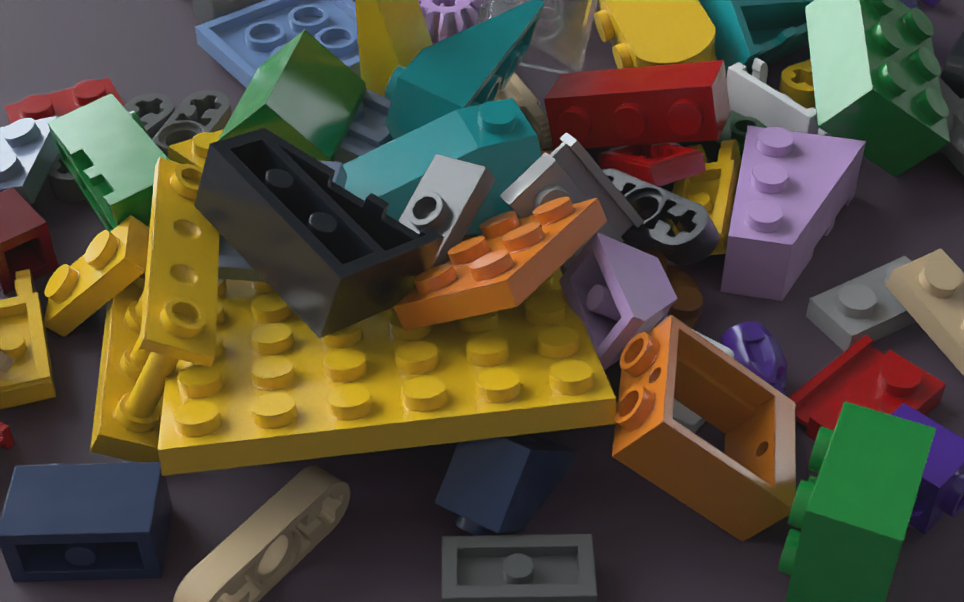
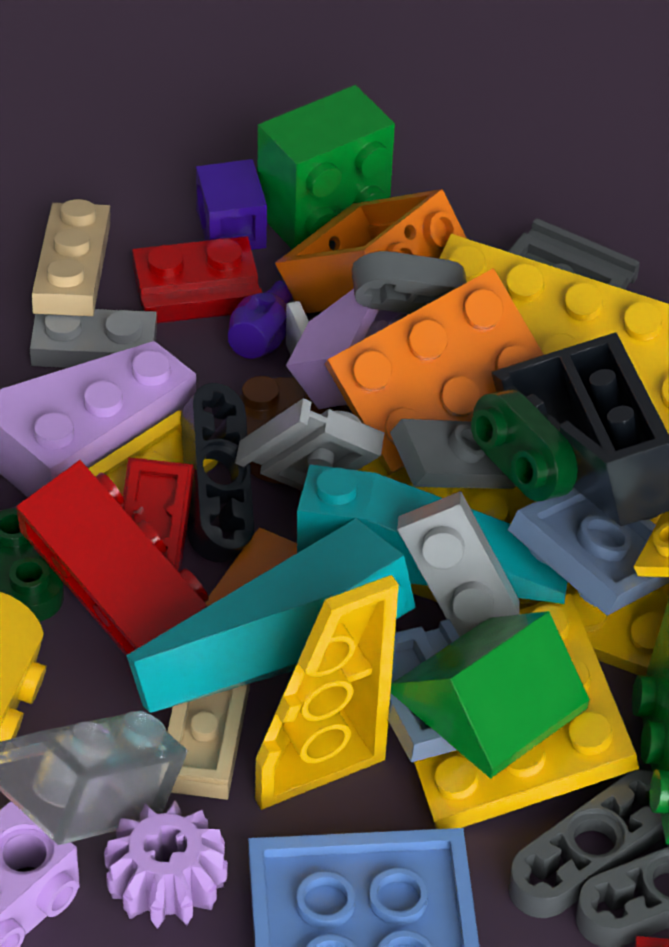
camera: 150 degrees left, 5 degrees up
(376, 122) = (458, 562): none -> light grey plate
(399, 186) = (524, 445): none -> dark green plate
(588, 285) = (403, 280): none -> dark grey beam

